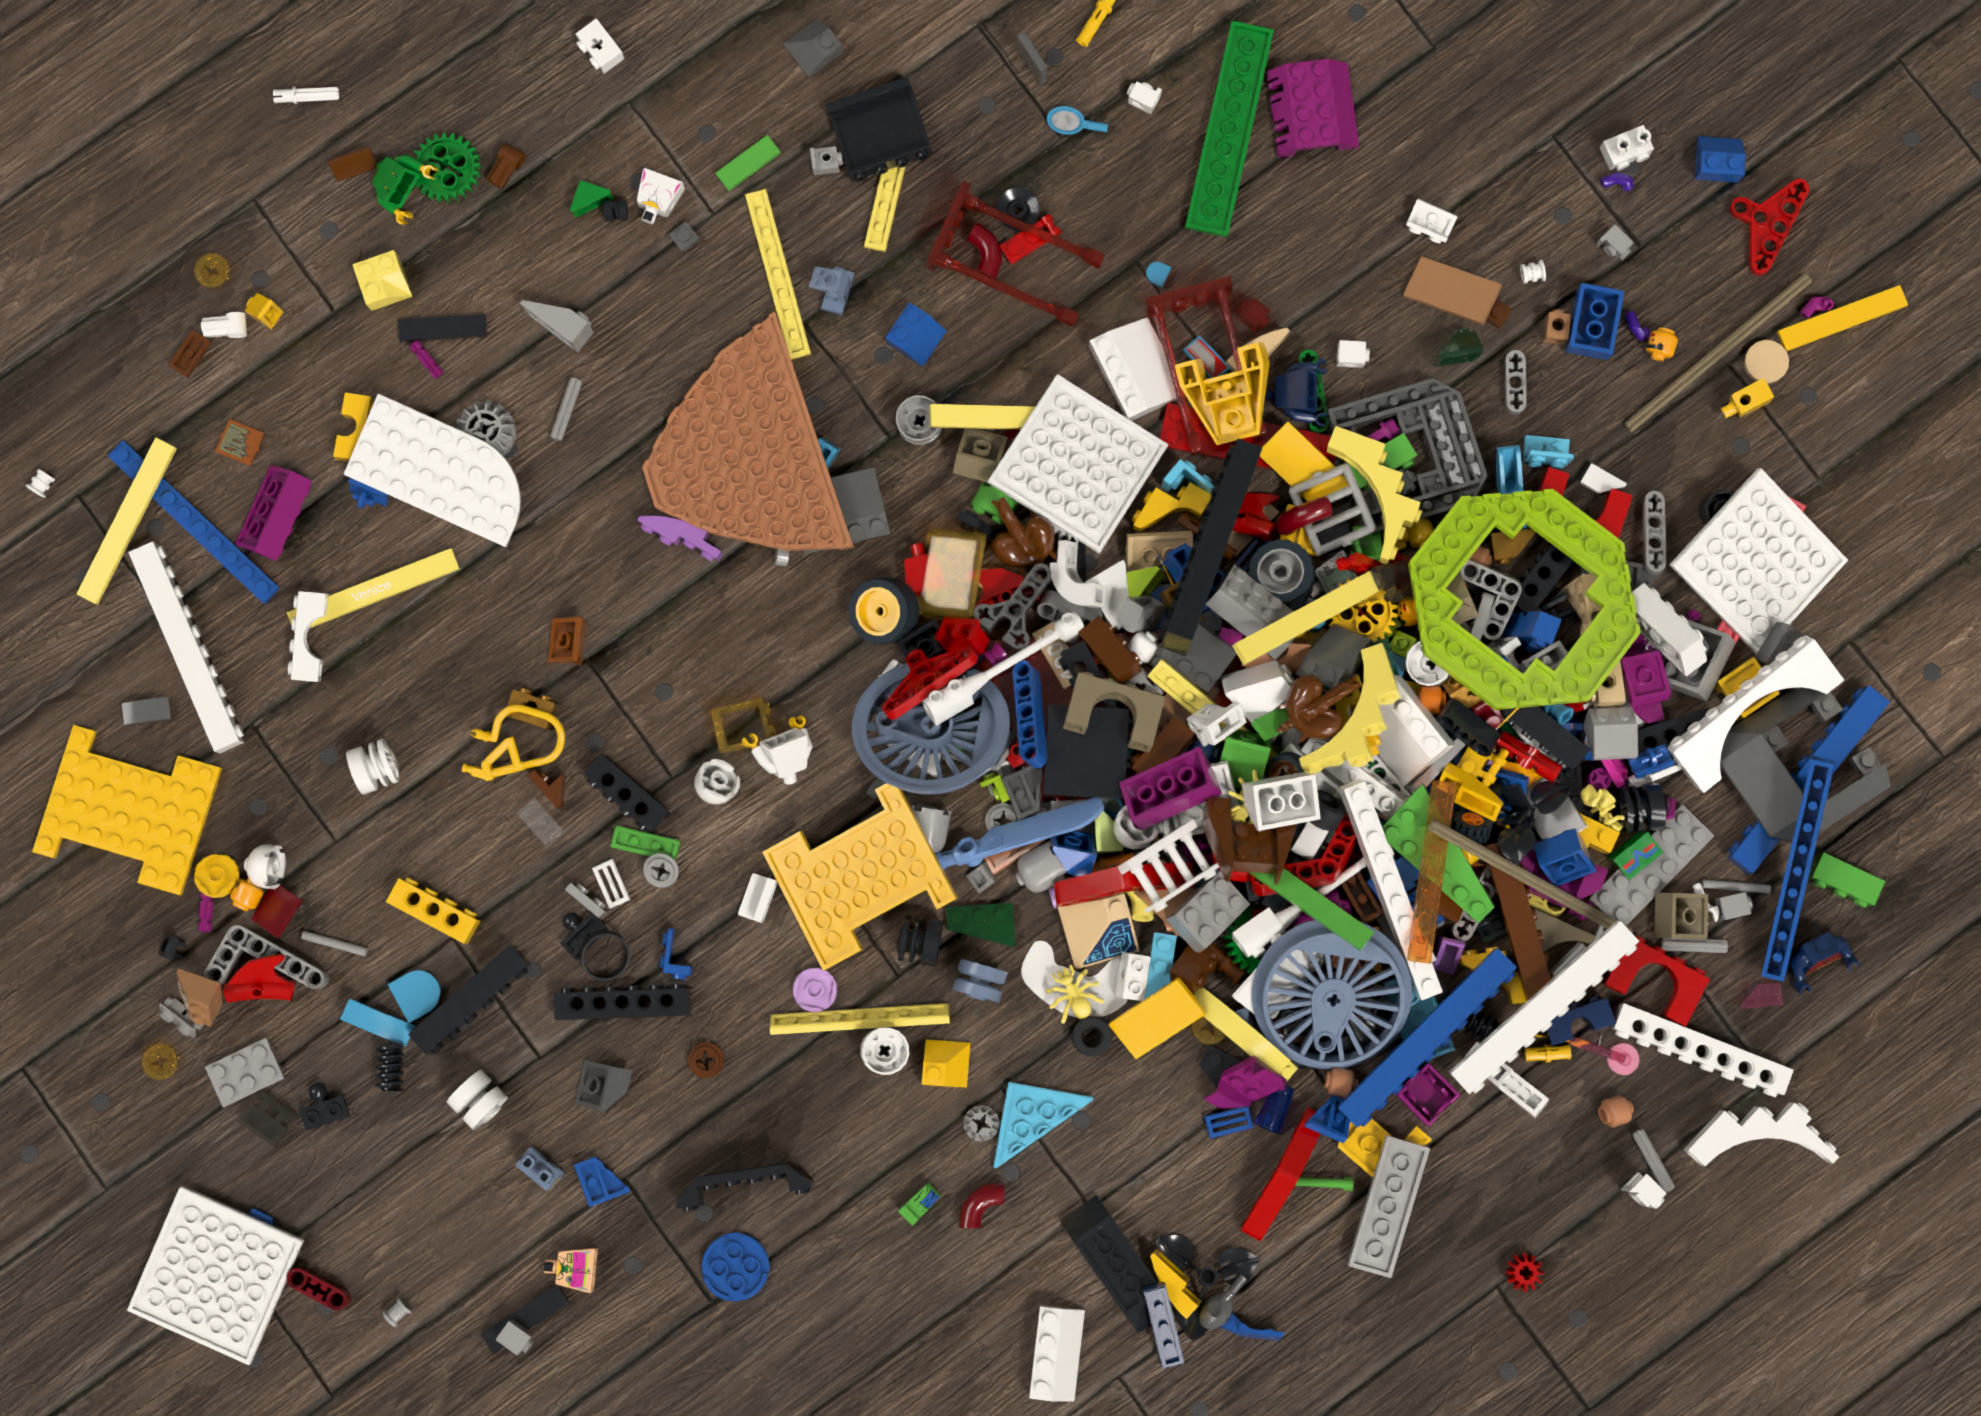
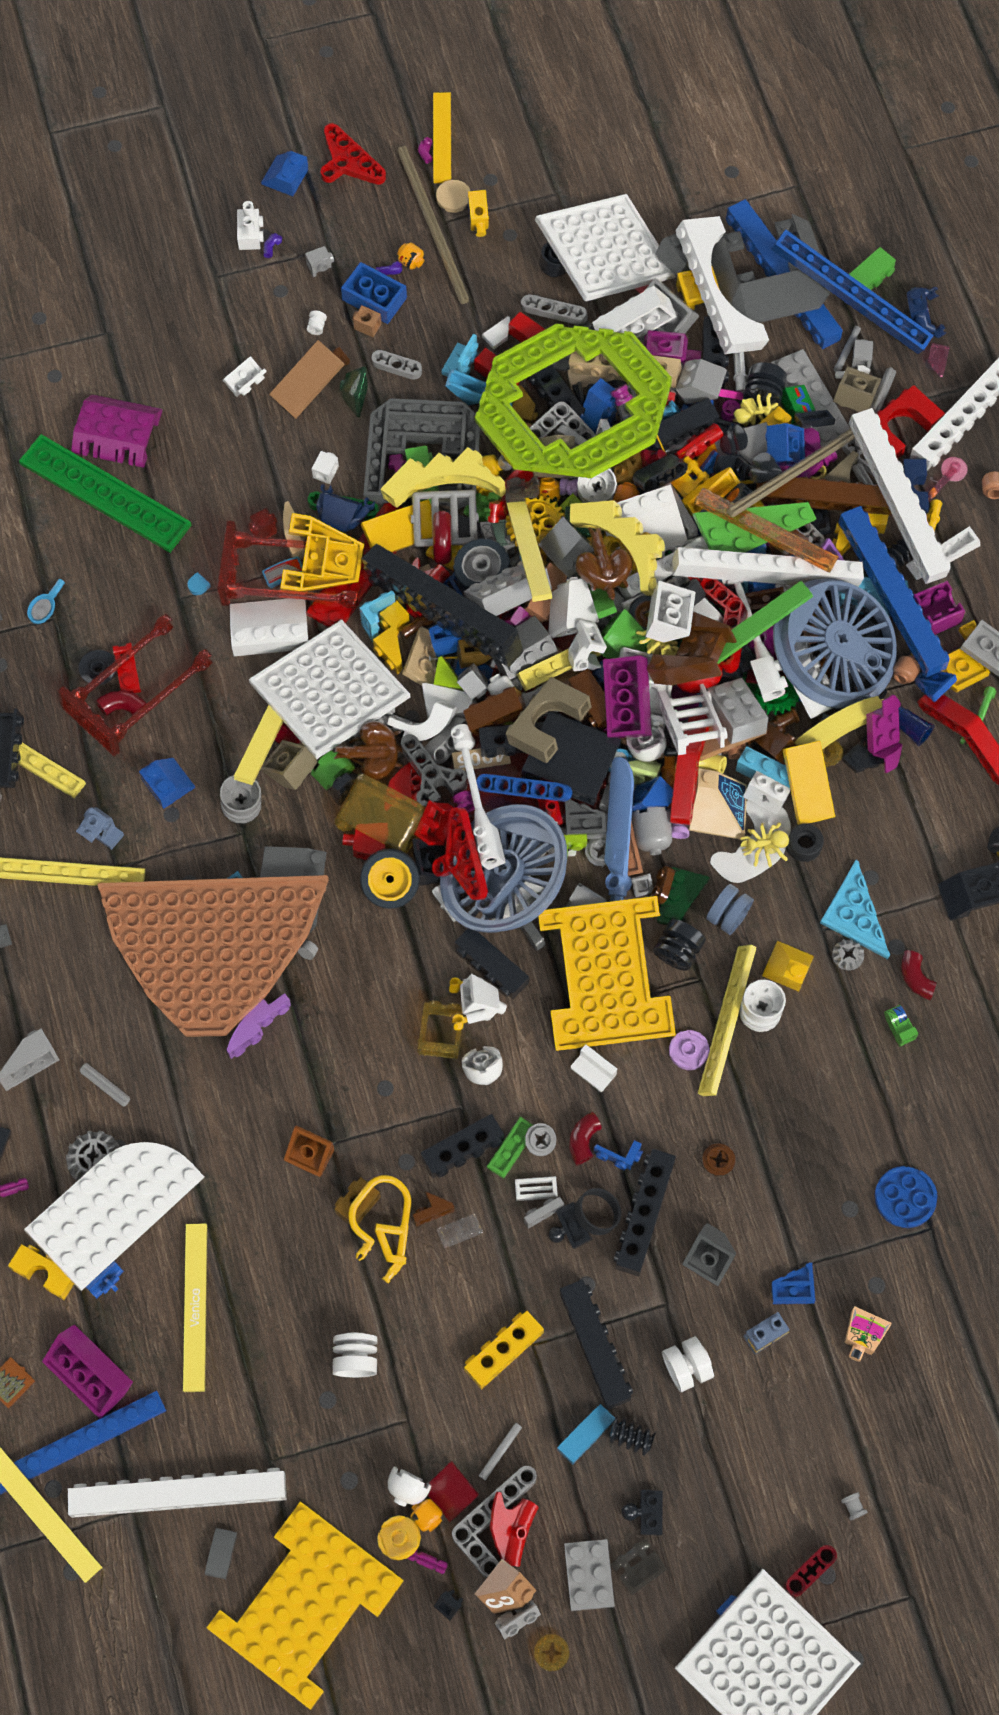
camera: 75 degrees left, 15 degrees down
(305, 663) = (236, 1388): white arch -> none
(416, 994) = (572, 1392): dark azure tile -> none
(515, 1337) = (911, 1403): light grey brick -> none
(529, 1315) = (895, 1394): black tile -> none
(678, 910) = (581, 1136): none -> dark red cylinder
(694, 1195) = (835, 1204): black slope -> none
(833, 753) = (492, 963): none -> black brick
(989, 900) = (663, 885): none -> reddish brown plate
(1143, 96) = (49, 544): white brick -> none
(1232, 1130) = (908, 779): blue tile -> none
(1545, 651) = (621, 395): none -> magenta wheel
(1617, 878) = (814, 419): none -> black tile
(1651, 761) = (732, 363): blue hips -> none

